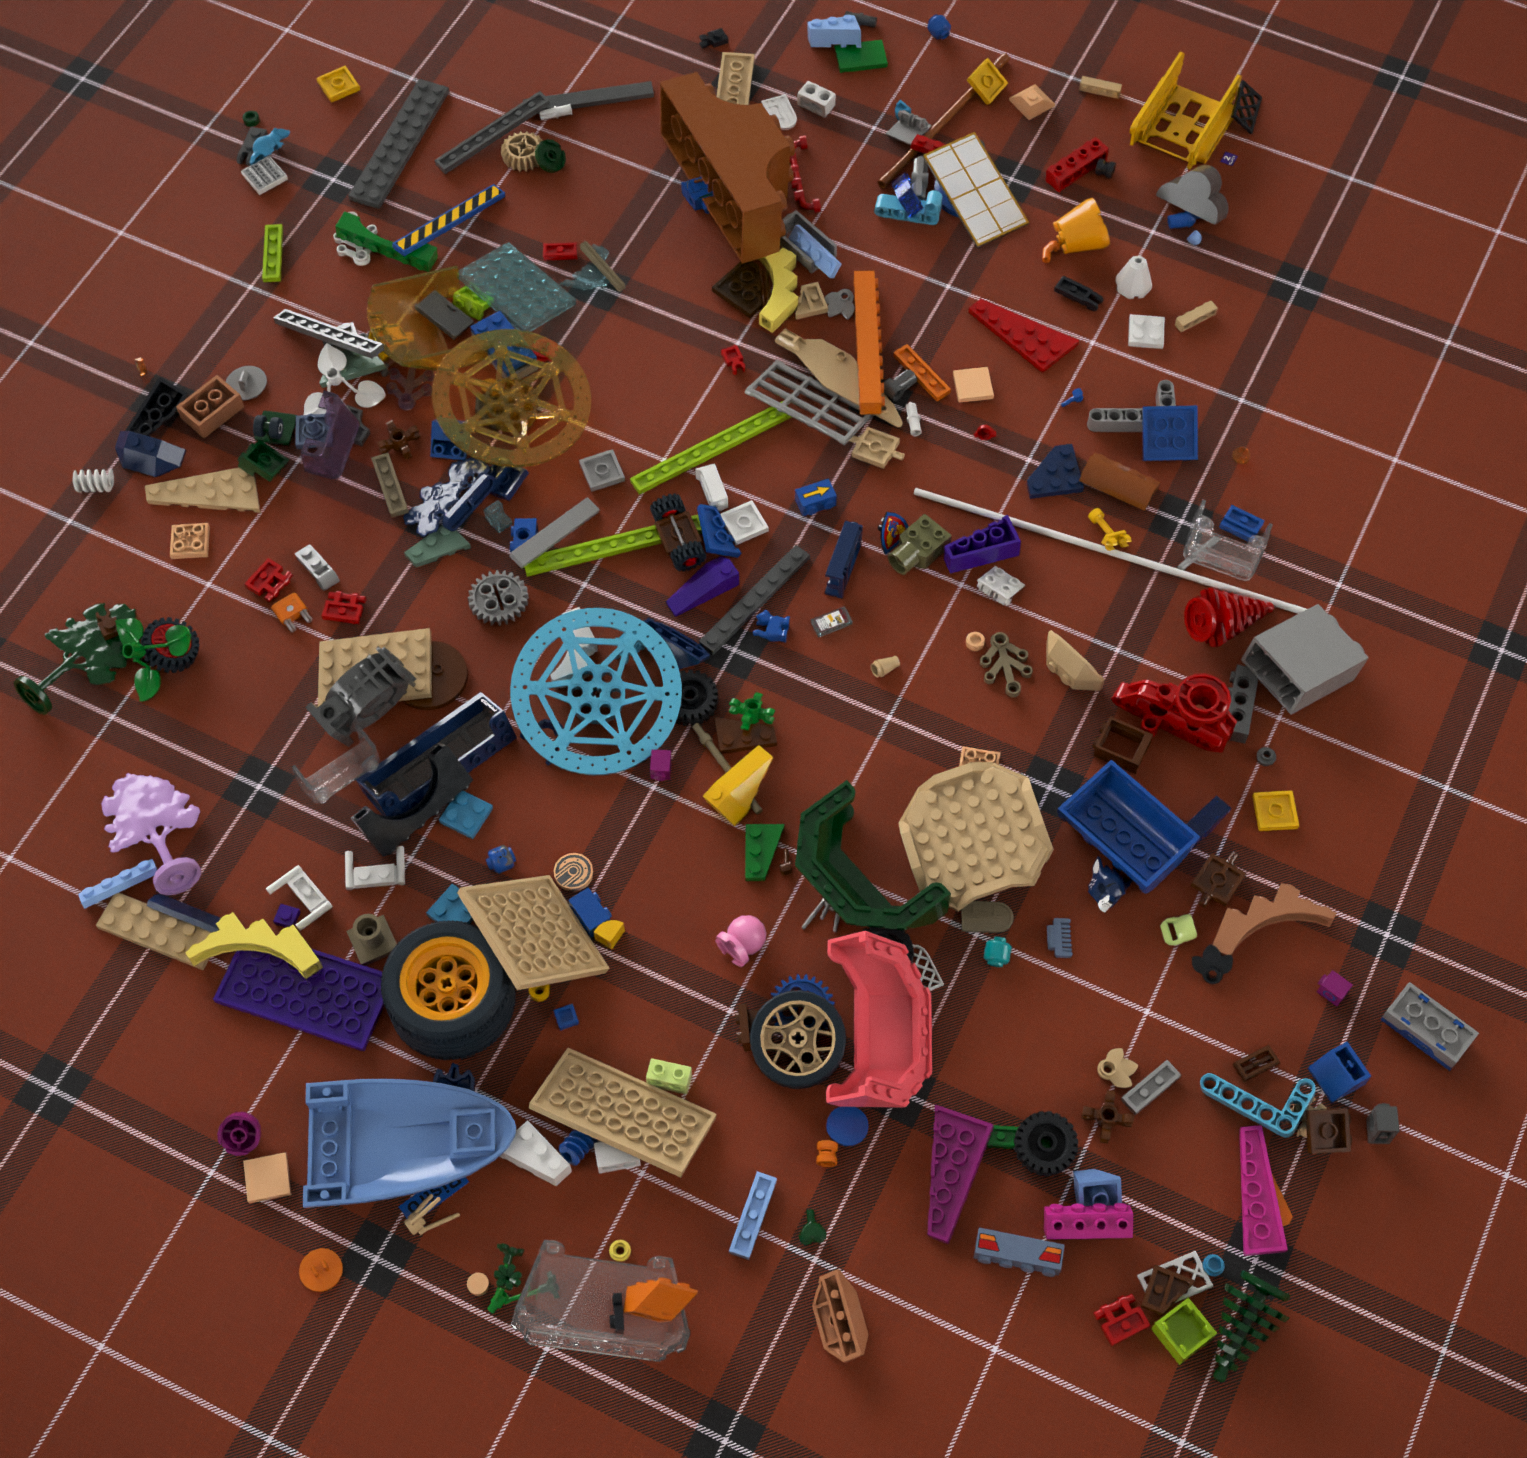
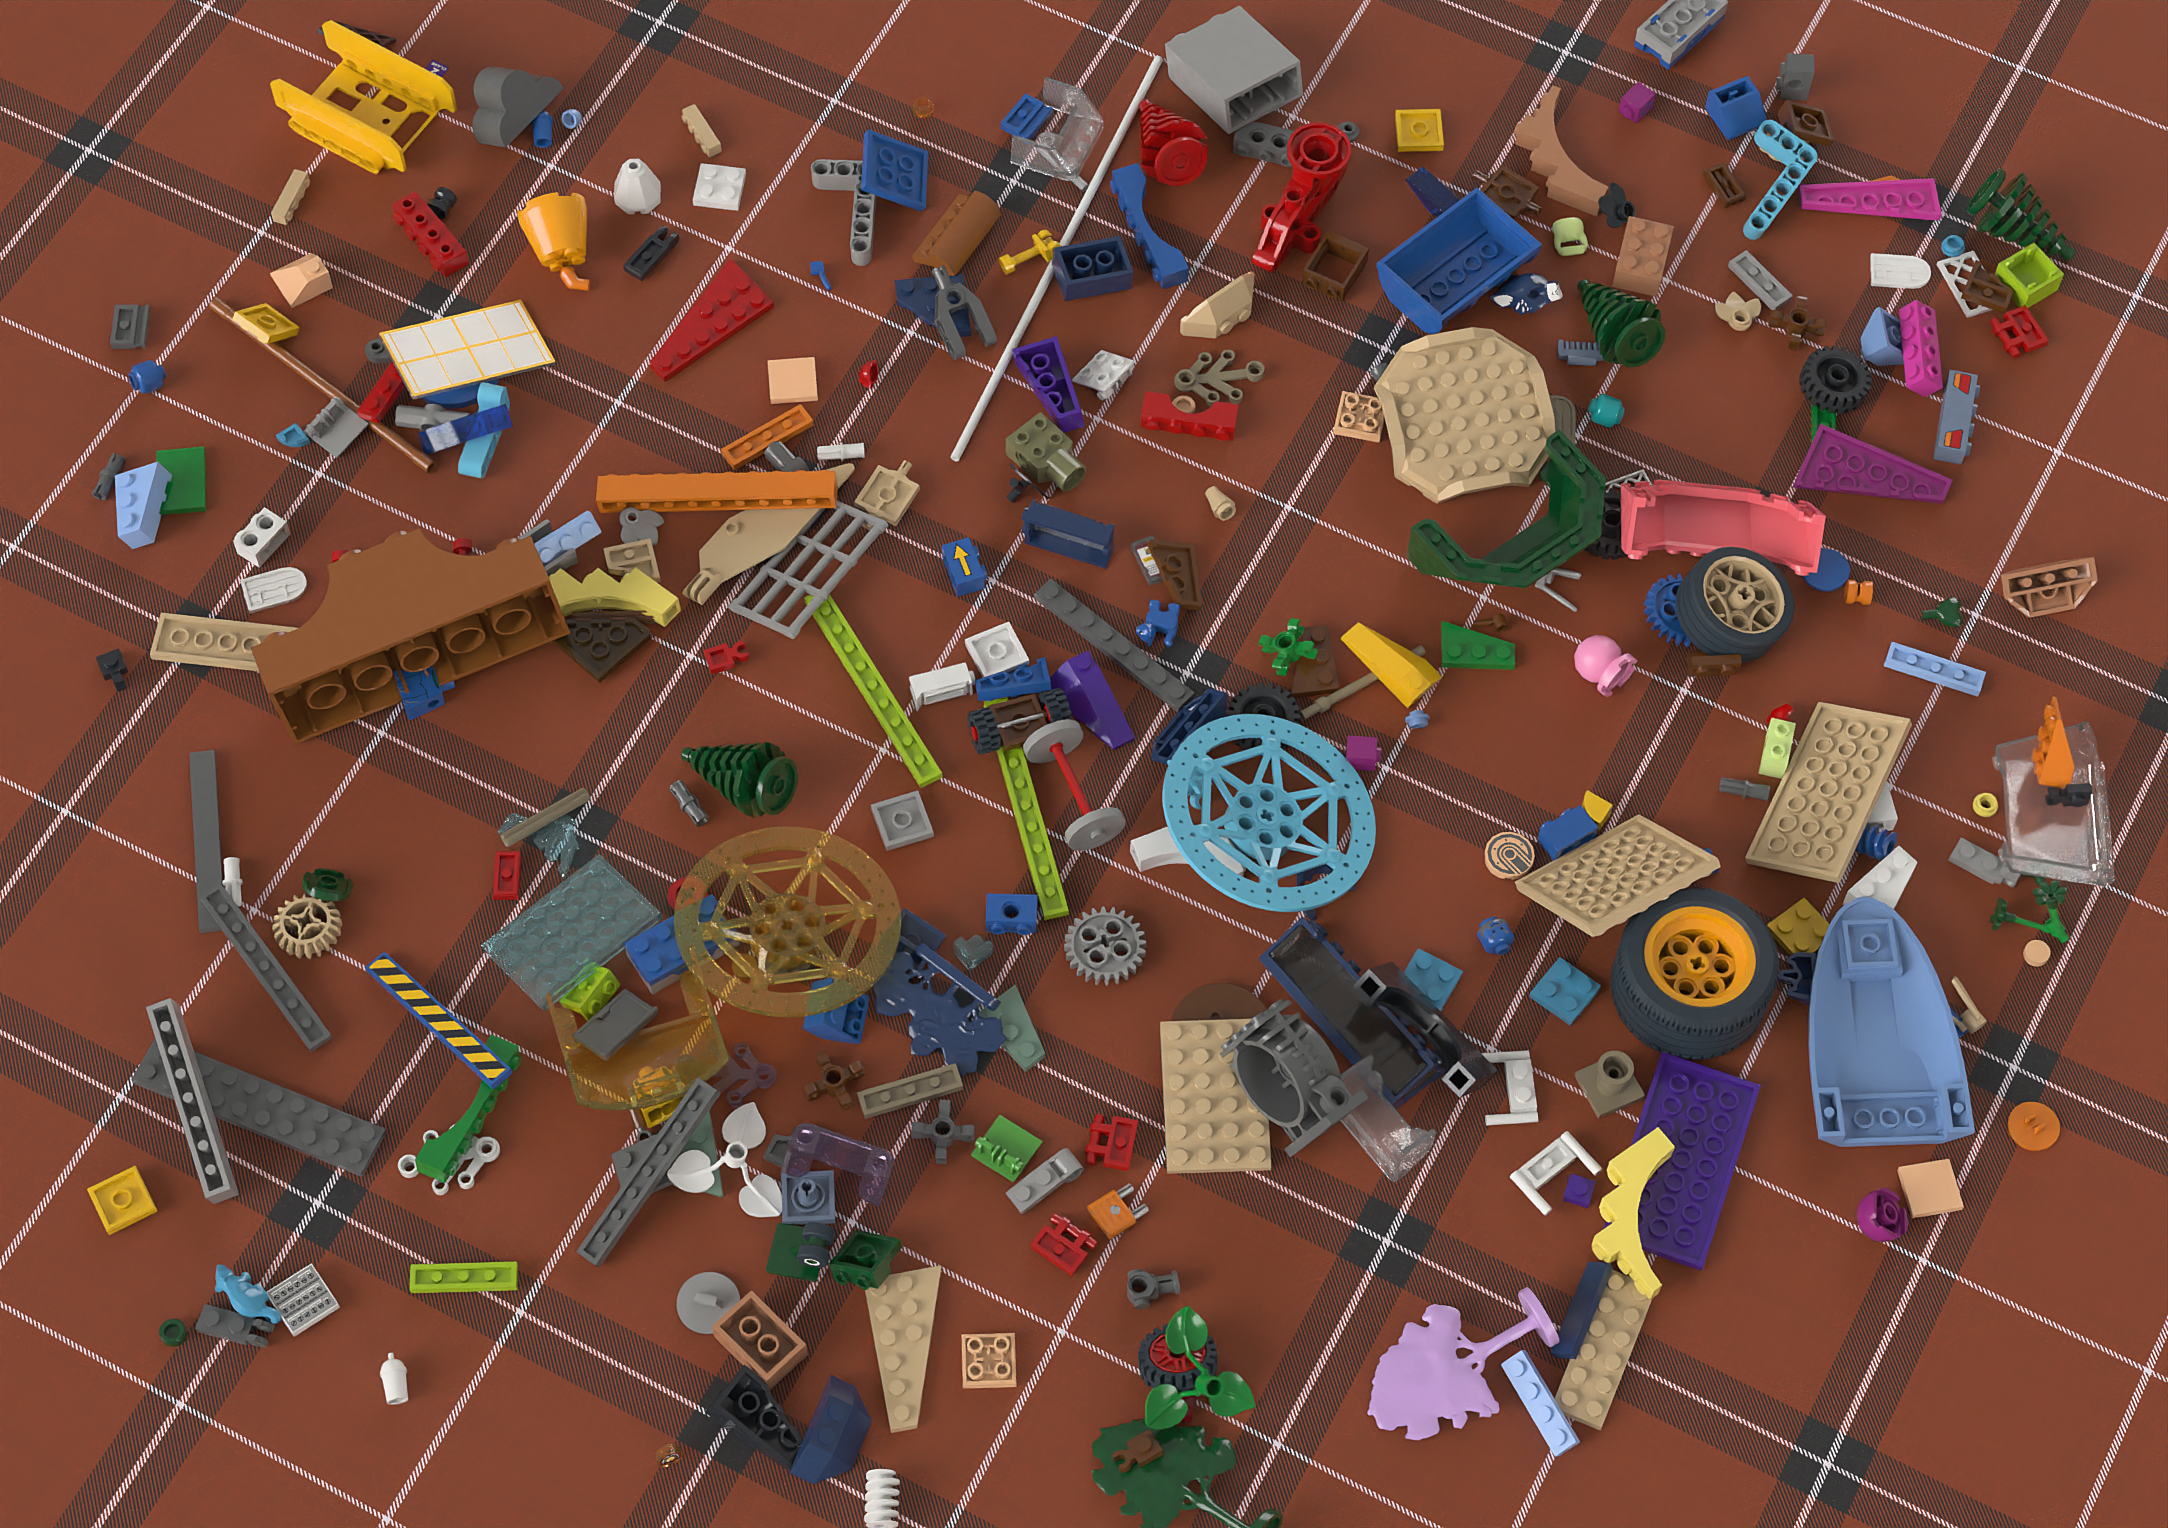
camera: 90 degrees left, 0 degrees up
(206, 224) = (394, 1380): none -> white piece
(232, 632) = (1154, 1287): none -> dark grey connector
(344, 544) = (1006, 1148): none -> bright green hinge
(356, 510) = (922, 1130): none -> dark grey pin
(394, 100) = (192, 1101): none -> light grey brick
(504, 1088) = (1799, 928): none -> yellow plate
(554, 533) = (1010, 871): light grey tile -> none
(571, 1234) = (1982, 864): none -> light grey hinge
(624, 340) = (689, 803): none -> dark grey pin
(627, 371) = (747, 775): none -> dark green plant
(633, 1052) = (1744, 788): none -> dark grey axle
(658, 553) = (1053, 743): none -> light grey piece
(692, 805) = (1417, 719): none -> medium blue plate
(701, 1082) = (1781, 713): none -> red plant
(820, 637) = (1179, 571): none -> reddish brown wing
(961, 660) = (1216, 422): none -> red arch
(980, 15) = (130, 326): none -> dark grey plate
(1046, 490) = (965, 300): none -> dark grey piece
(1080, 959) = (1622, 324): none -> dark green plant
(1094, 568) = (1092, 268): none -> dark blue brick
(1109, 623) = (1166, 261): none -> blue arch
(1163, 986) = (1642, 256): none -> nougat brick
(1181, 1215) = (1898, 271): none -> white window

